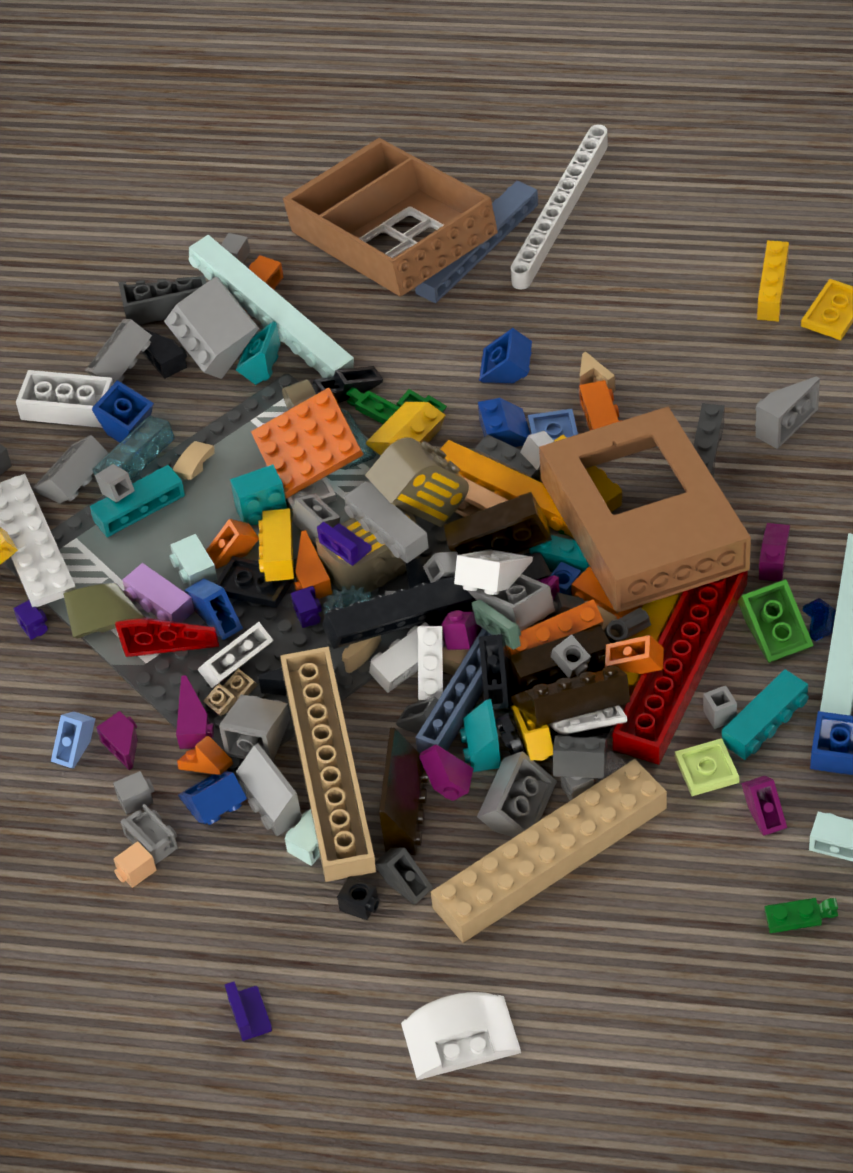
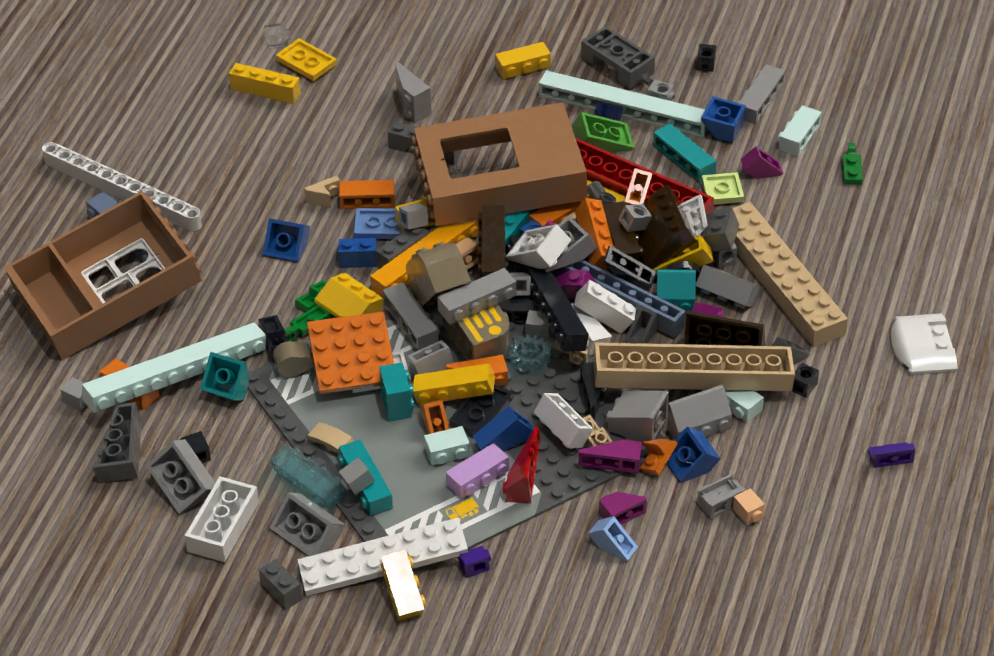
camera: 85 degrees left, 5 degrees down
(98, 608) = (483, 509): olive slope -> none
(121, 411) = (263, 474): blue slope -> none
(134, 792) = (677, 503): light grey brick -> none
(212, 327) = (181, 404): light grey slope -> none
(306, 606) = (521, 378): dark purple brick -> none
(343, 542) = (489, 325): dark purple panel -> none
(496, 623) = (591, 253): sand green plate -> none
(719, 706) = (677, 168): light grey brick -> none

